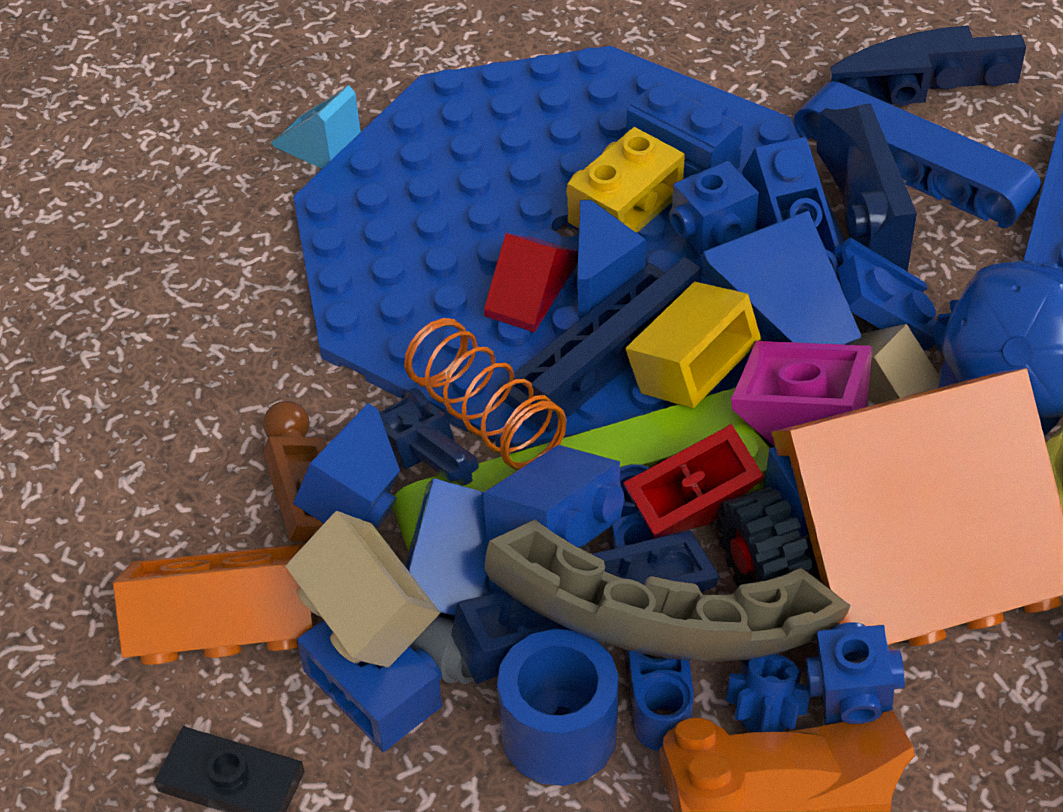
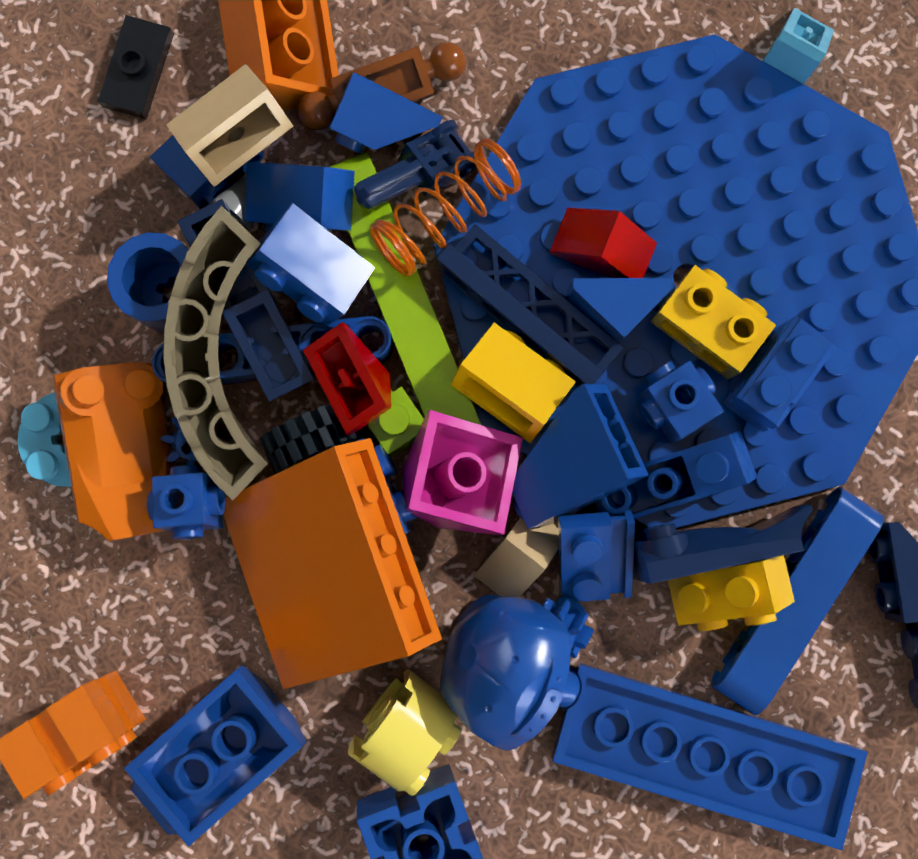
camera: 85 degrees right, 35 degrees up
(922, 164) = (734, 592): none -> yellow brick

